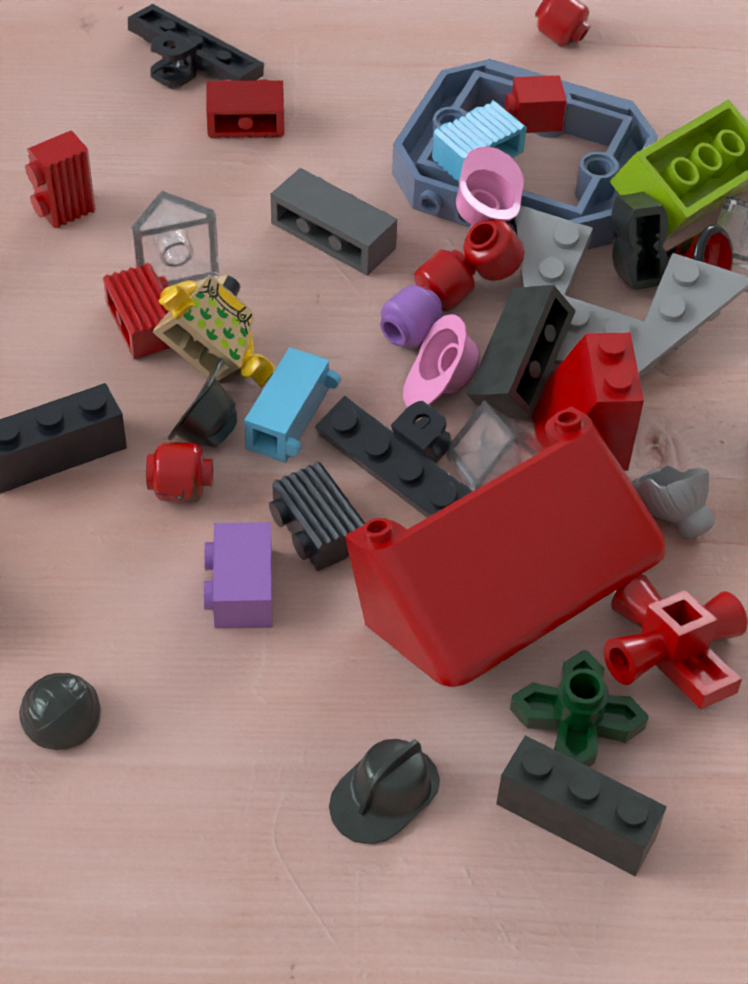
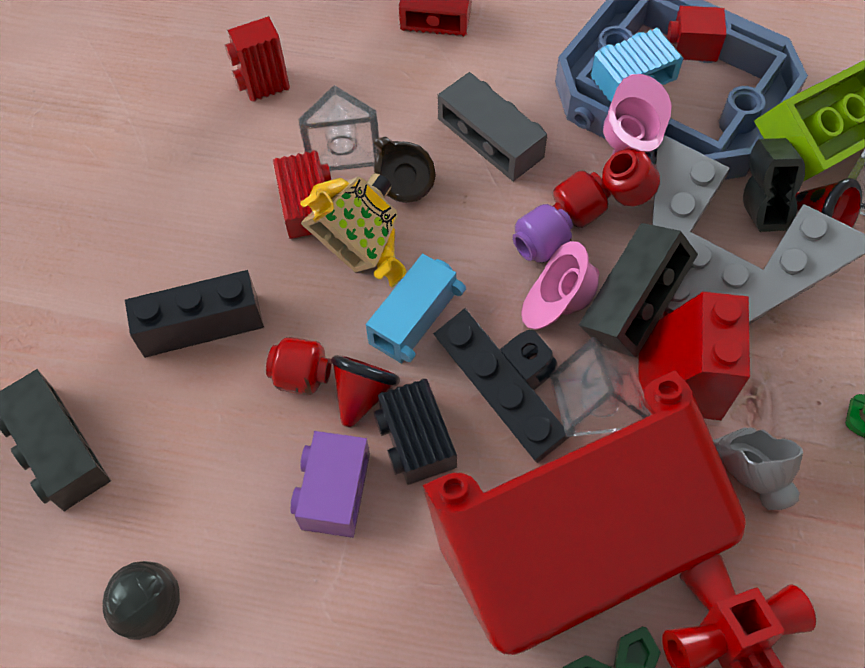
camera: 15 degrees right, 10 degrees up
(210, 416) = (338, 313): pearl dark grey piece -> none
(249, 480) = (359, 387): none -> red hat
(253, 267) = (406, 168): none -> dark brown hat

